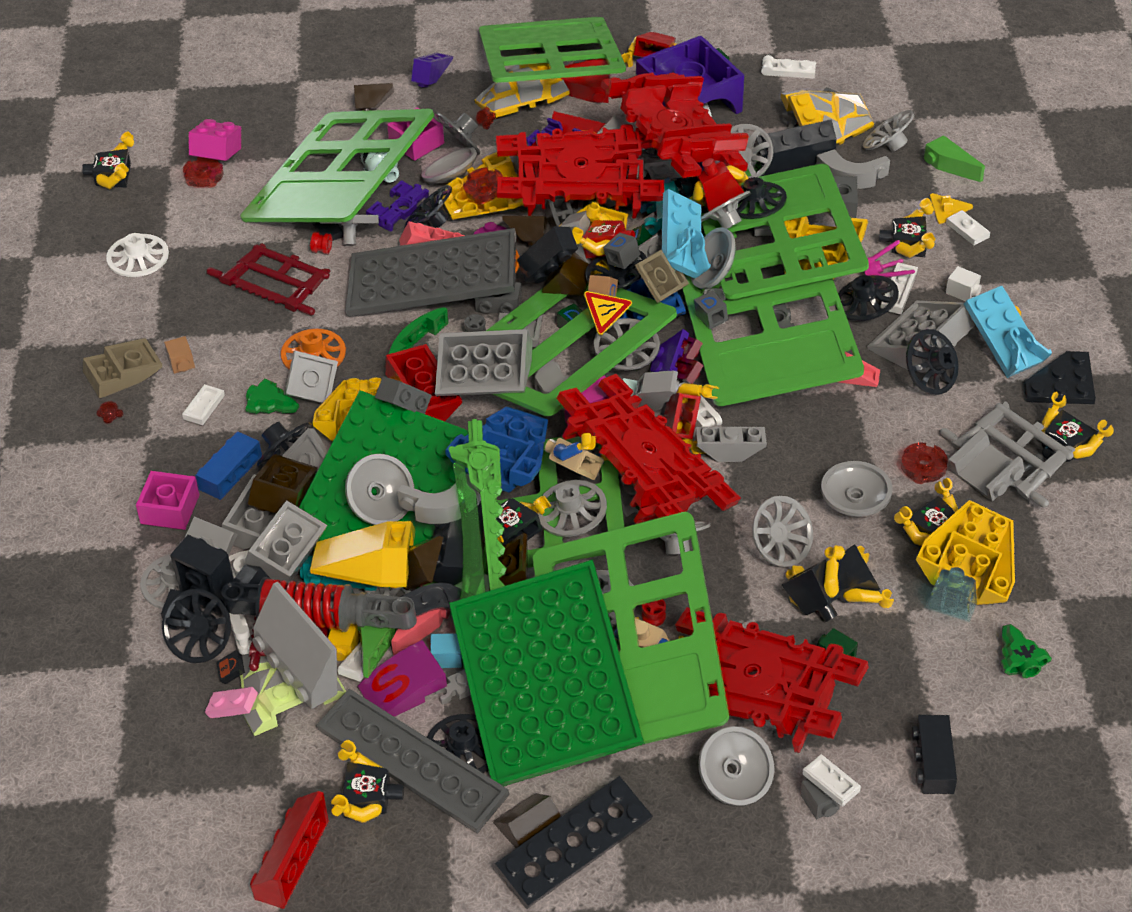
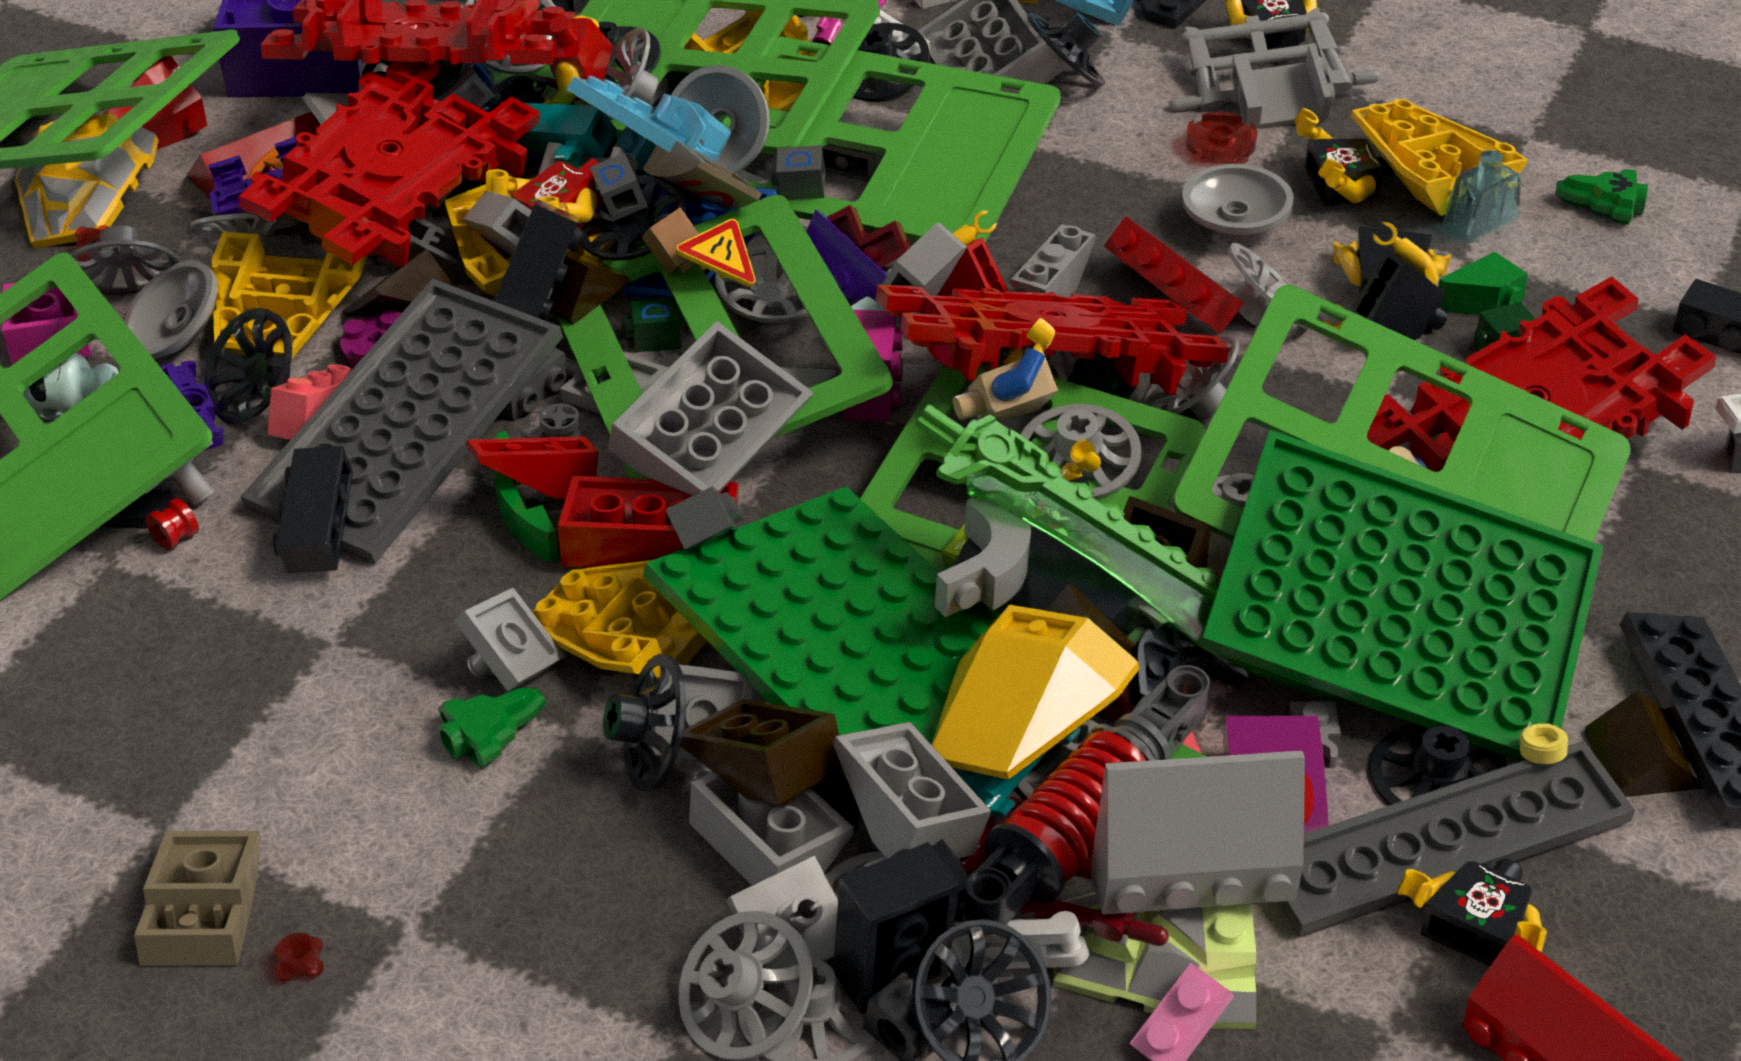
camera: 60 degrees left, 5 degrees down
(152, 540) = (737, 981): none -> light grey wheel
(167, 500) = (626, 937): dark pink brick -> none
(179, 354) = (257, 800): medium nougat brick -> none
(203, 404) = (413, 815): white plate -> none
(228, 465) = (602, 831): blue brick -> none
(230, 667) = (1088, 997): black tile -> none
(248, 261) = (122, 671): dark red piece -> none
(312, 343) = (410, 621): orange wheel -> none
(349, 277) = (314, 509): none -> black brick
(386, 476) = (896, 623): light grey dish -> none
(423, 324) = (538, 462): none -> red slope
(446, 650) = (1242, 698): medium azure brick -> none
(479, 193) = (288, 297): clear red plate -> none
(490, 772) = (1543, 744): none -> light yellow tile
(520, 443) = (891, 470): blue wedge -> none
(646, 45) = (168, 21): red torso -> none
(750, 762) = (1673, 496): light grey dish -> none
(768, 480) = (1173, 275): none -> red brick
(872, 624) = (1483, 285): none -> green slope

